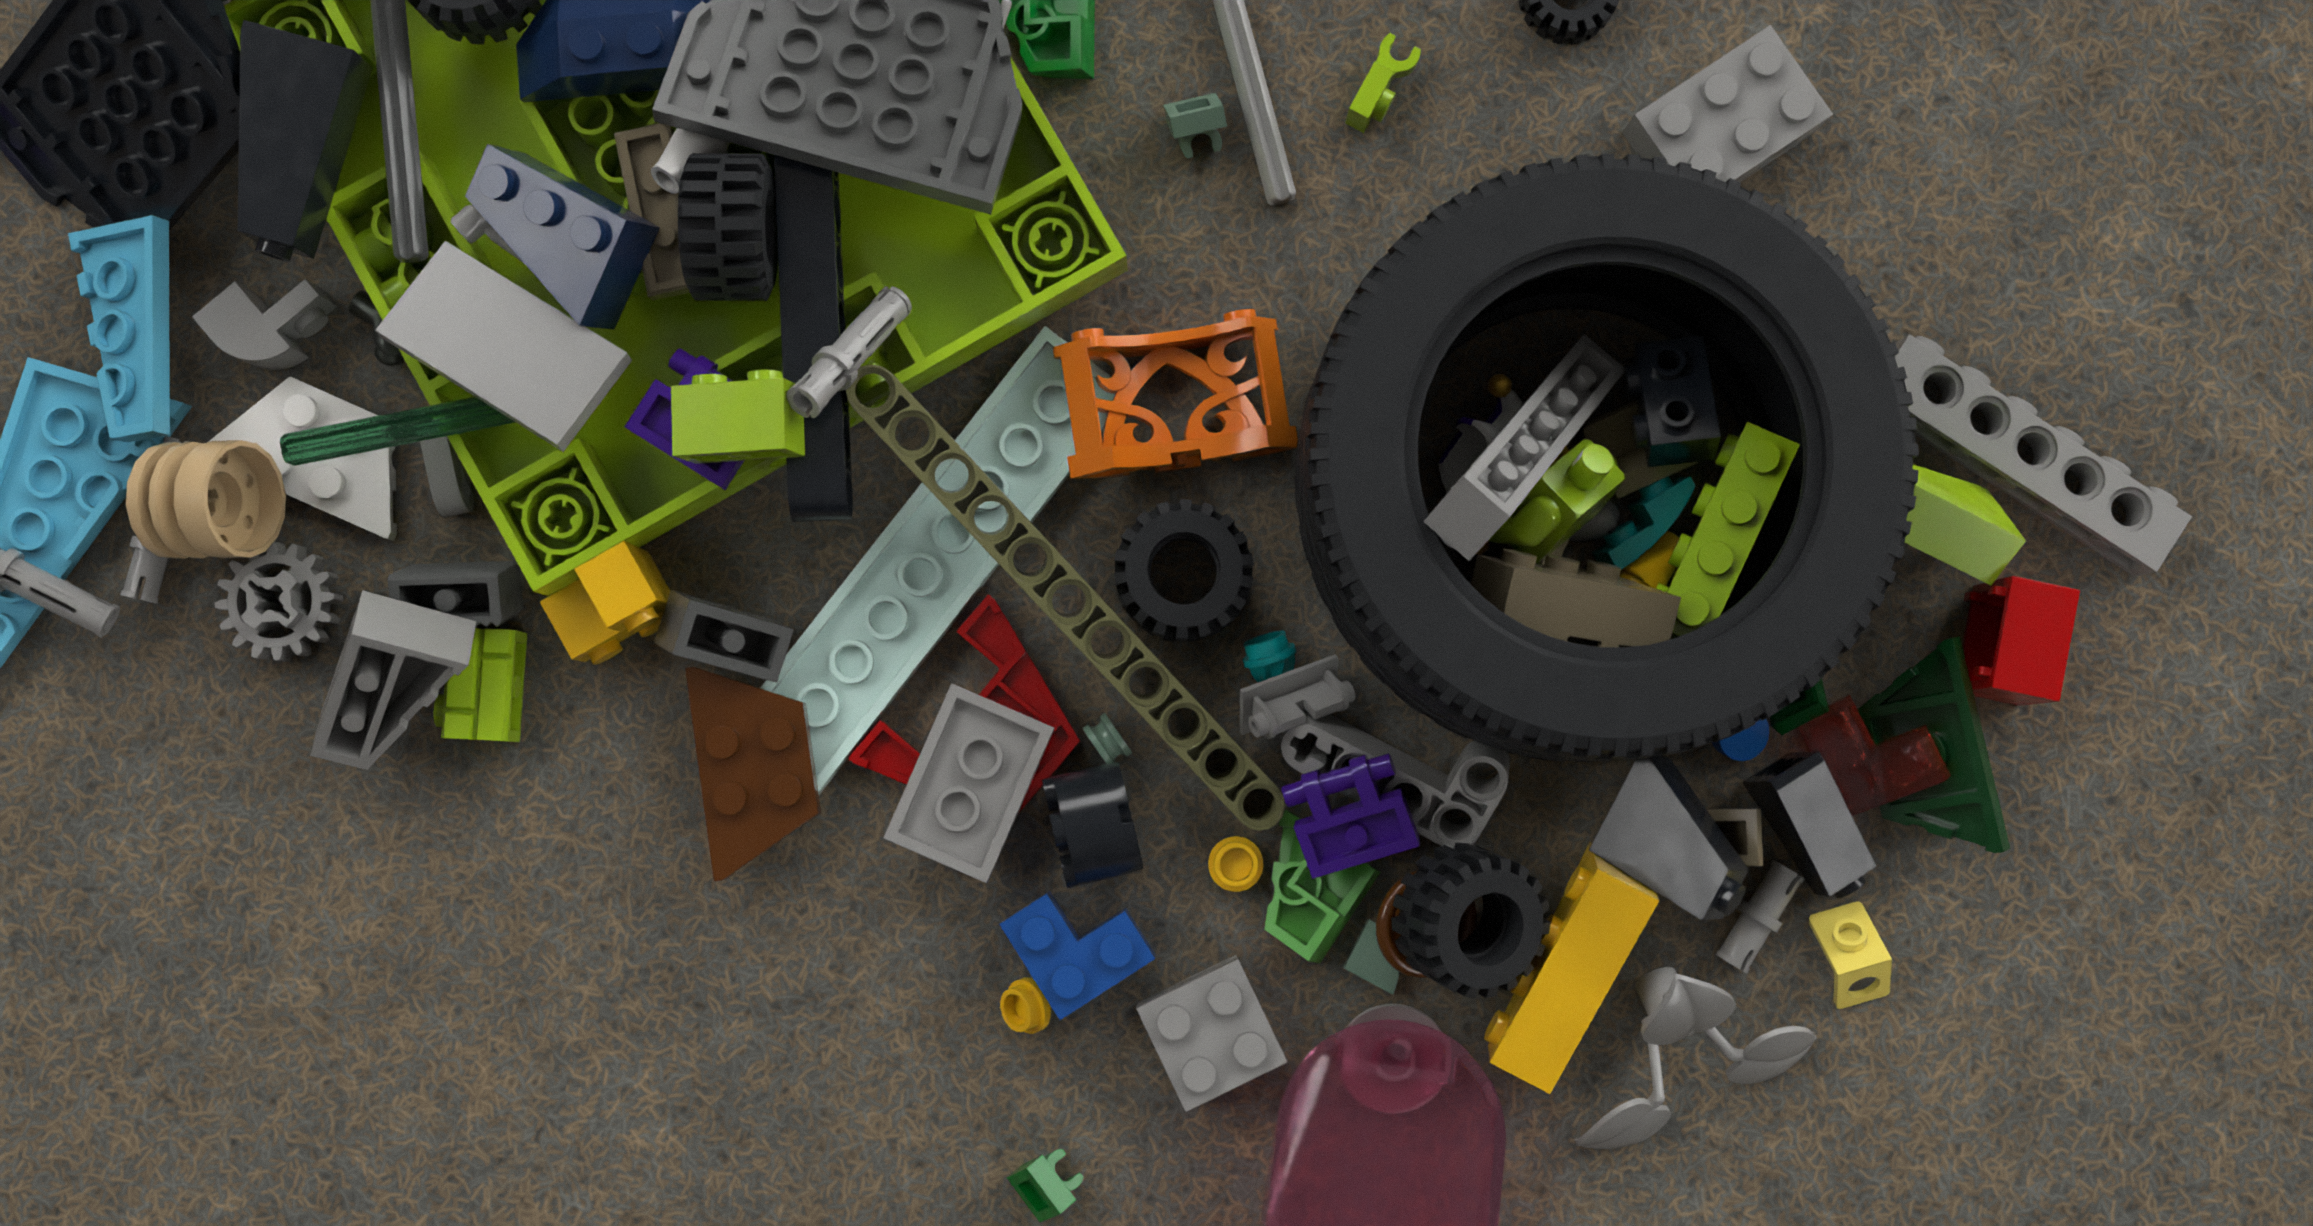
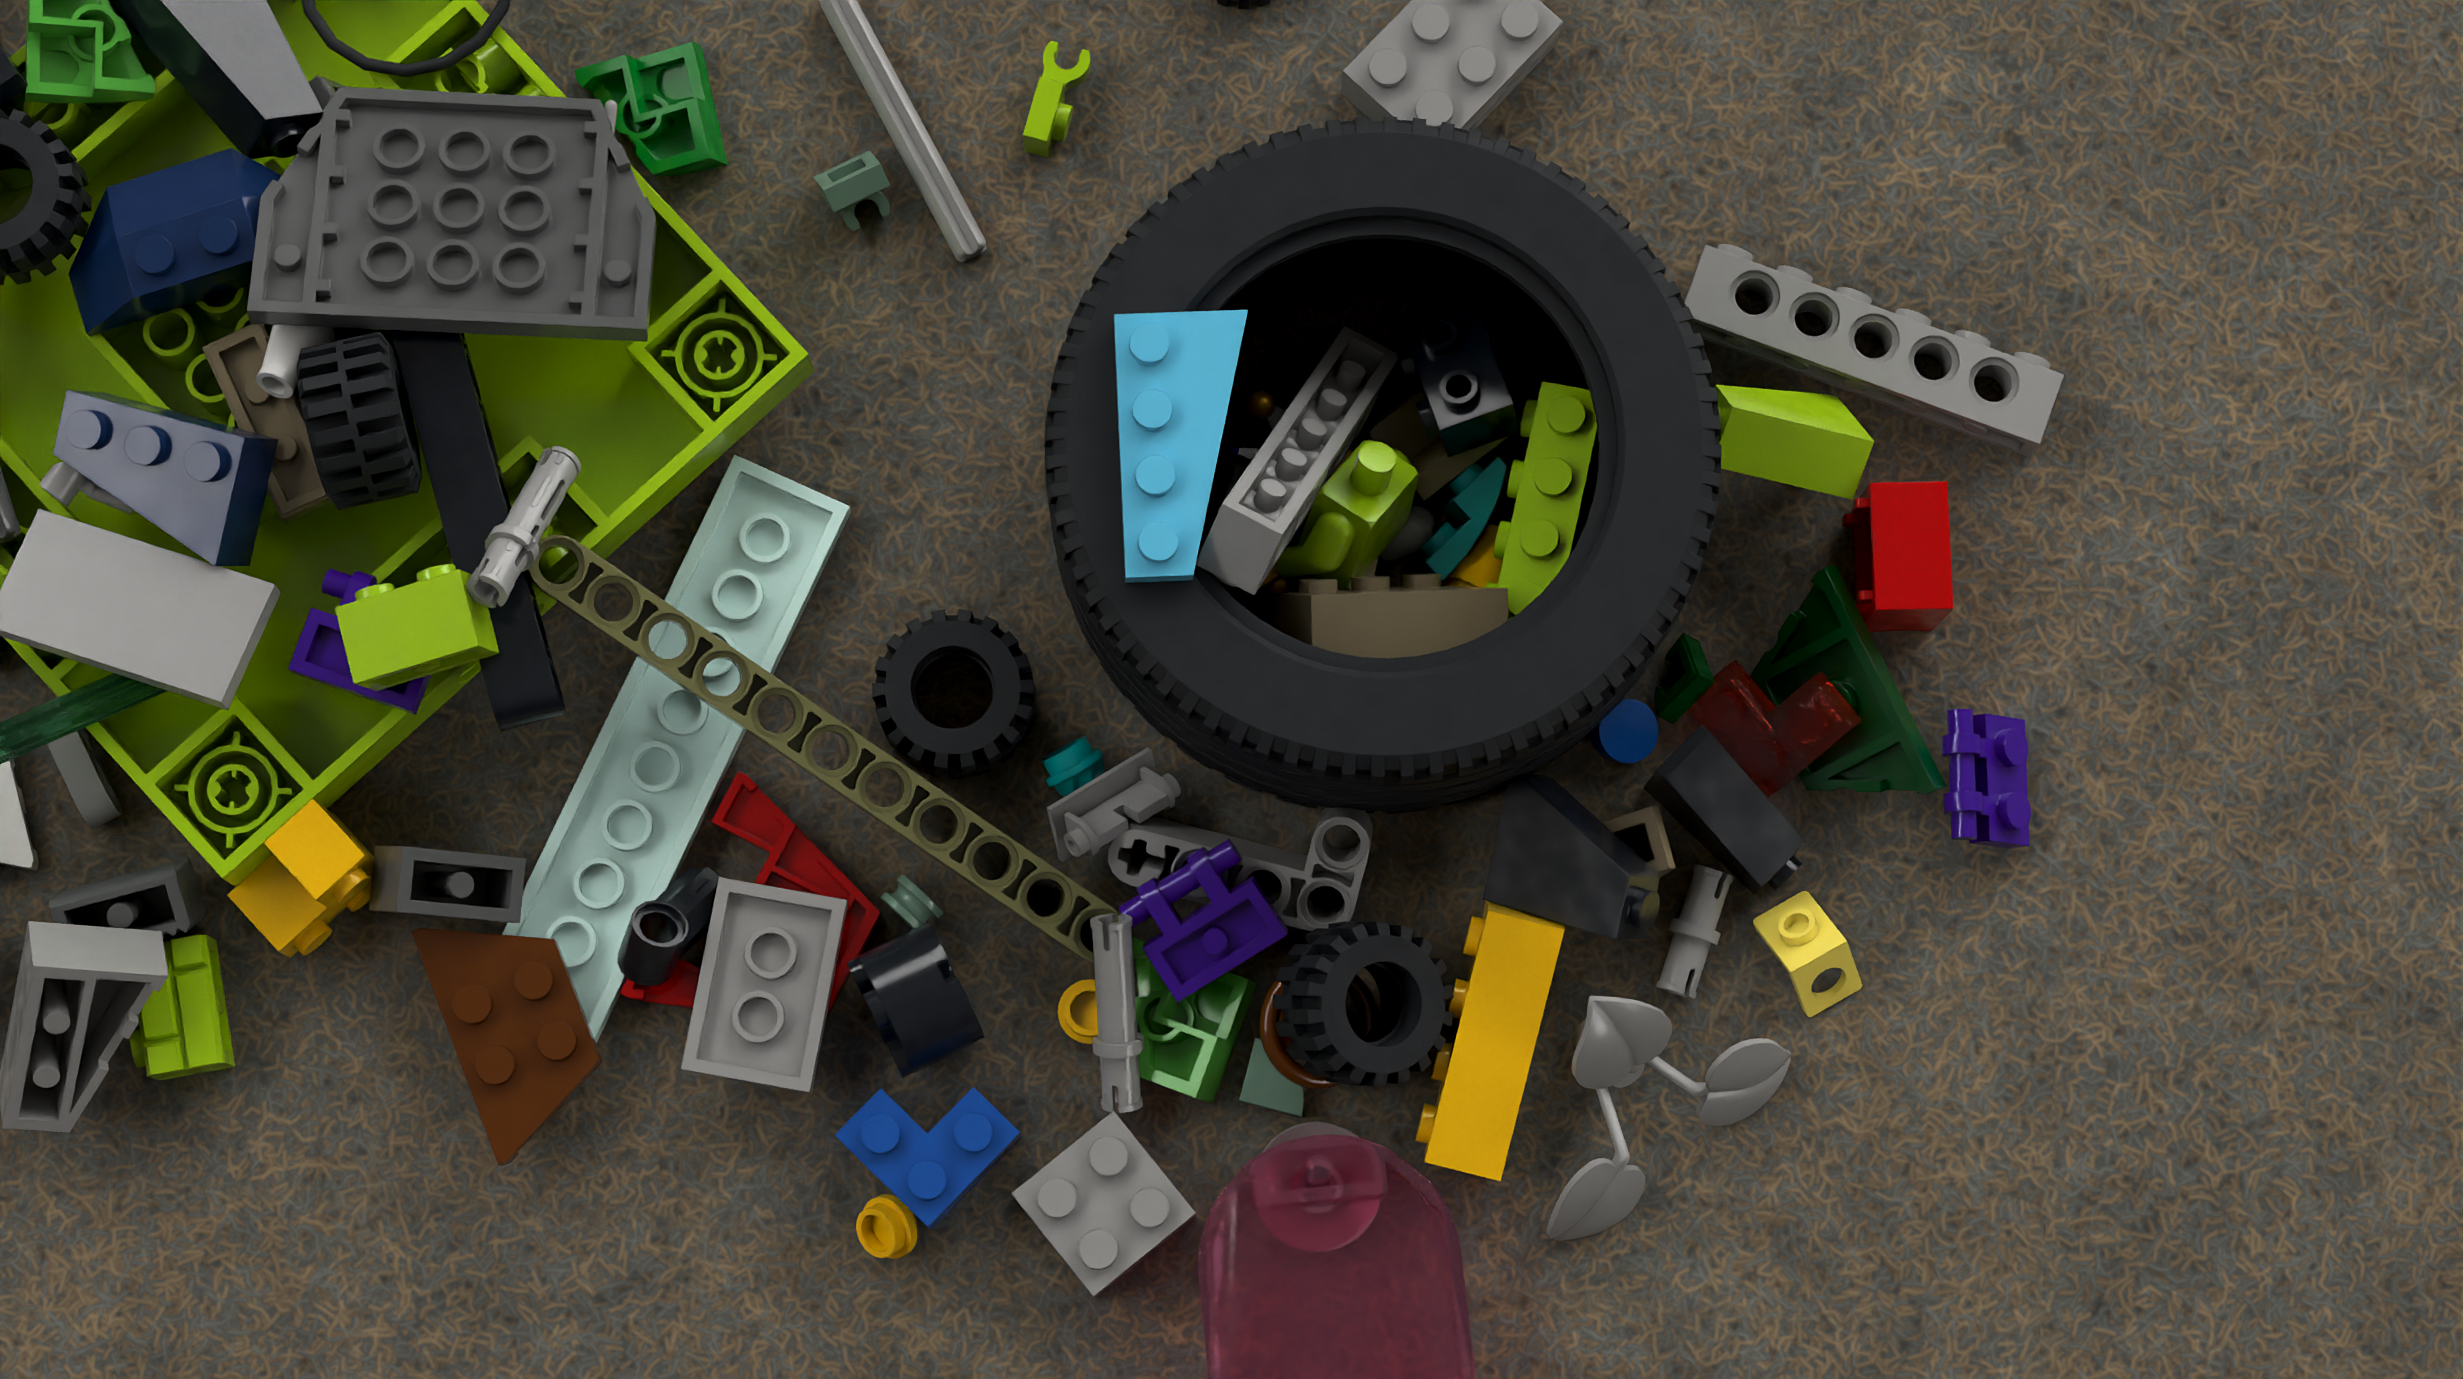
camera: 20 degrees left, 5 degrees down
(903, 711) = (667, 927): none -> black piece
(1119, 452) = (849, 575): orange fence -> none
(1255, 896) = (1117, 1038): none -> light grey pin
(1431, 392) = (1171, 419): none -> medium azure wing
(2042, 847) = (1987, 779): none -> dark purple plate

